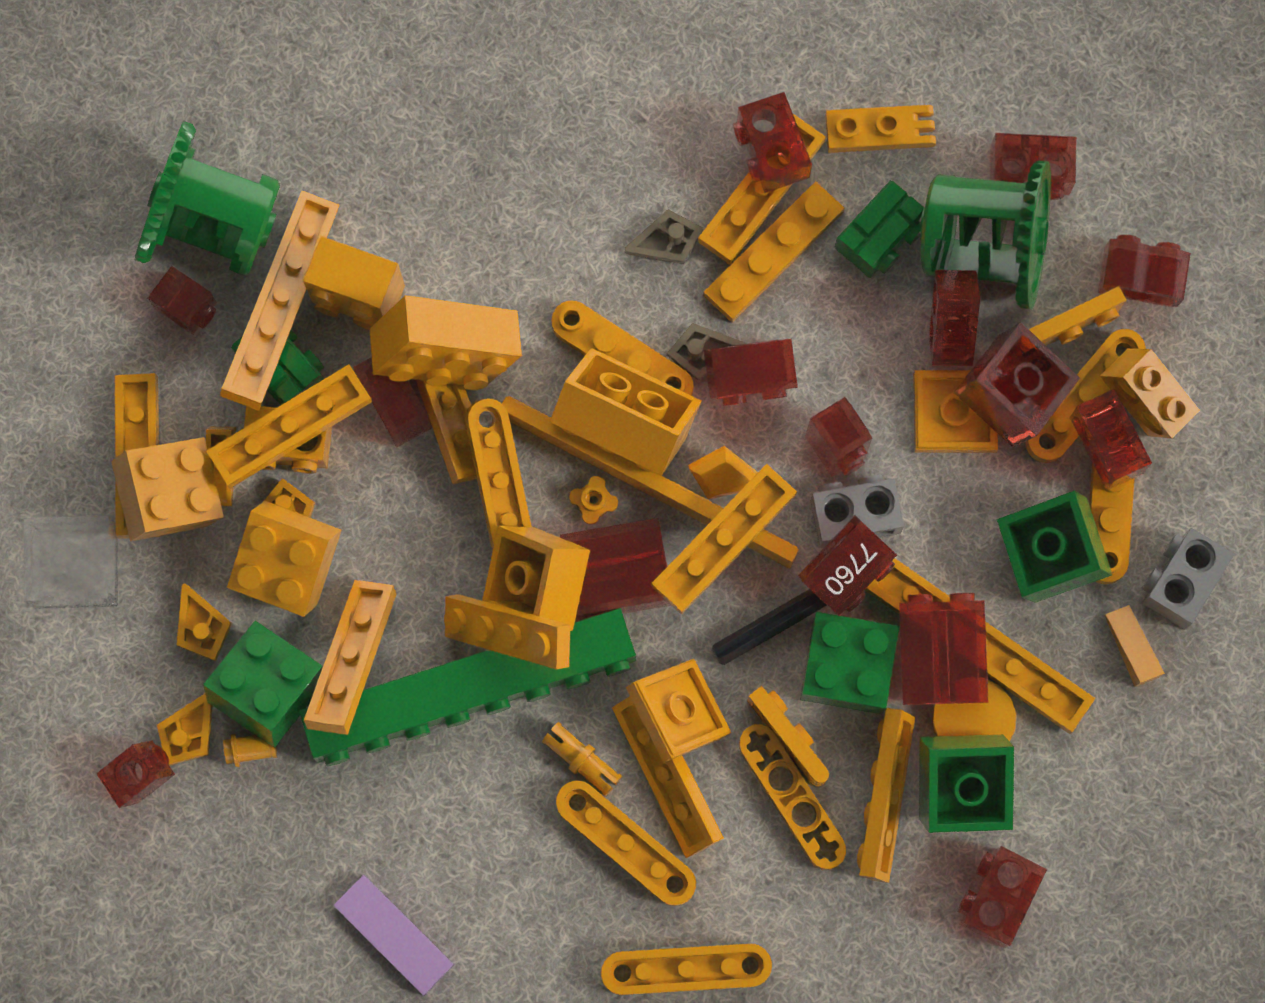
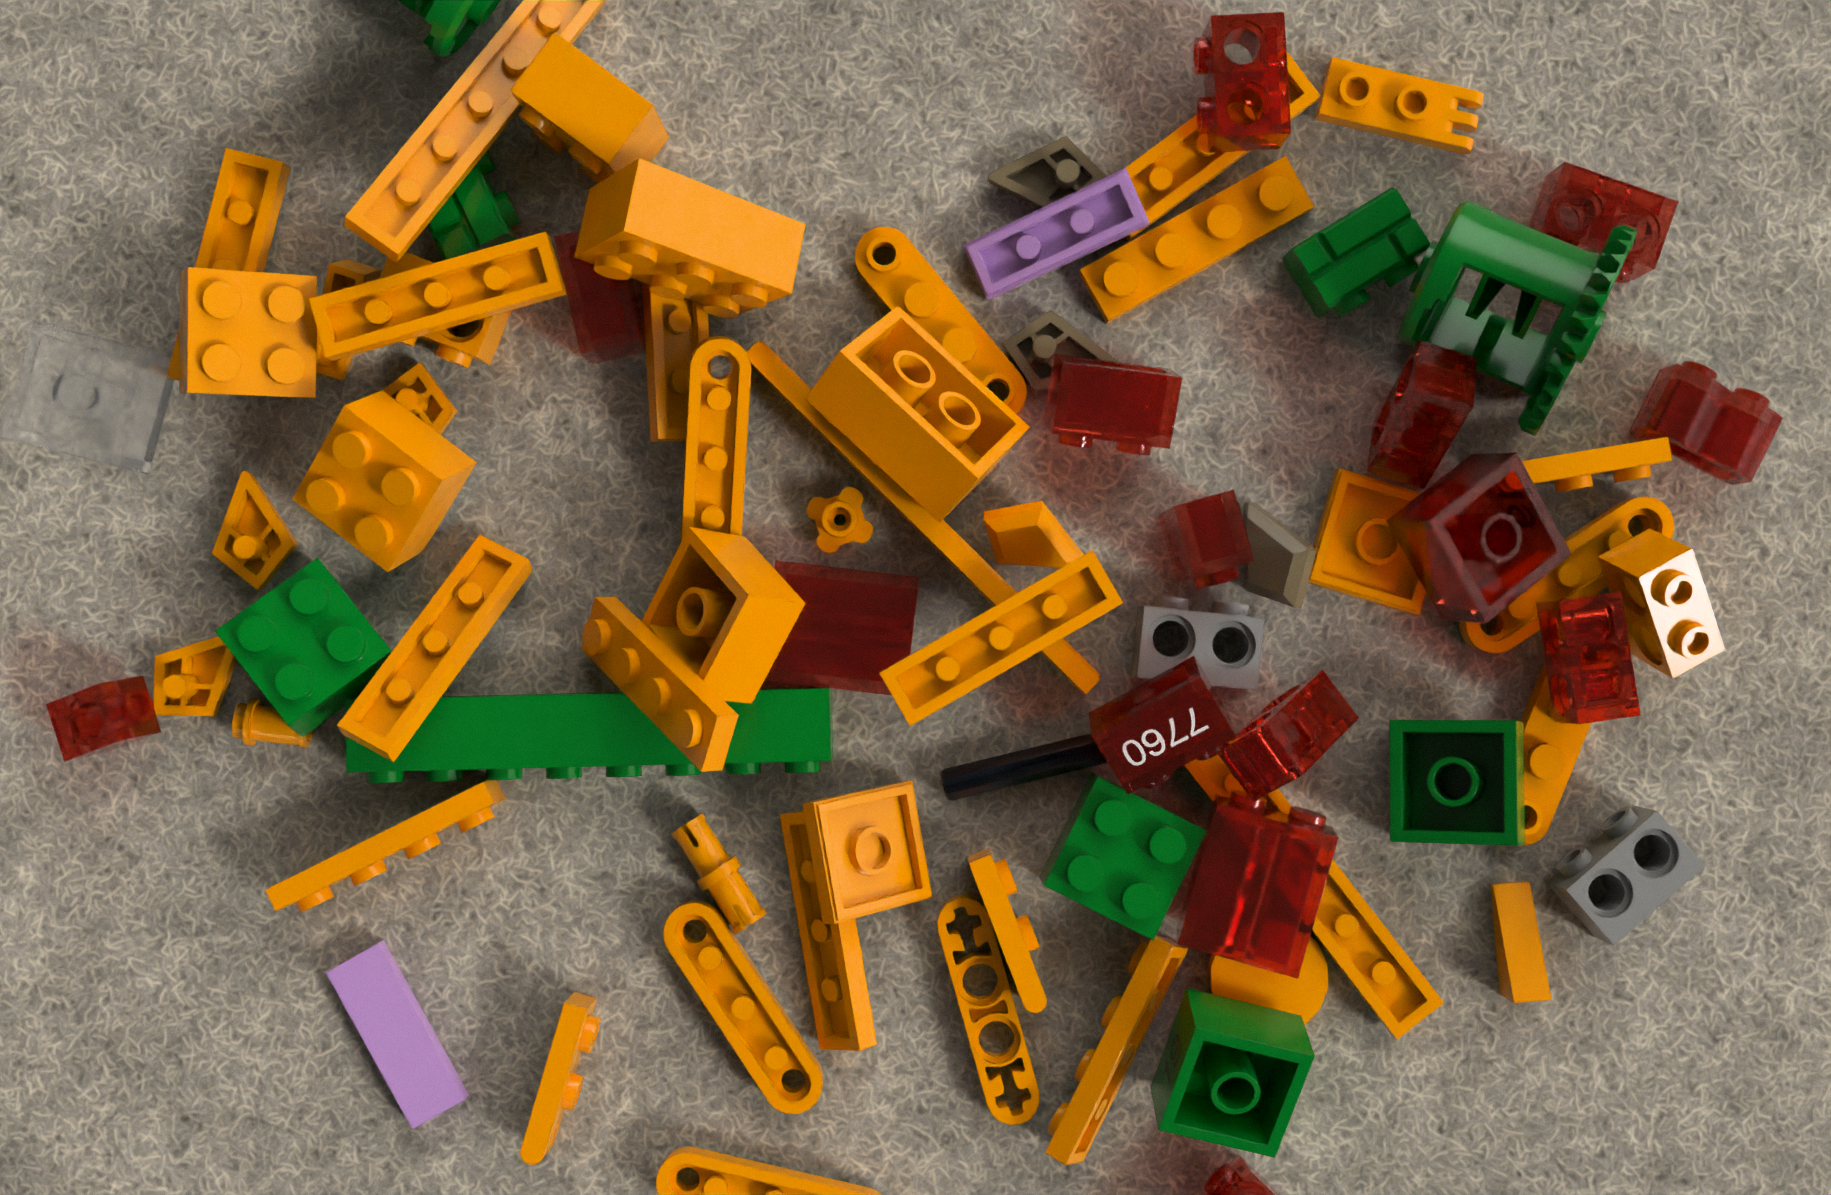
camera: 15 degrees right, 10 degrees up
(183, 301) = (350, 68): clear red brick -> none
(339, 817) = (367, 857): none -> light orange plate
(516, 932) = (559, 1083): none -> light orange hinge
(681, 273) = (1057, 234): none -> lavender tile
(892, 440) = (1280, 558): none -> dark tan piece
(932, 548) = (1288, 736): none -> clear red brick

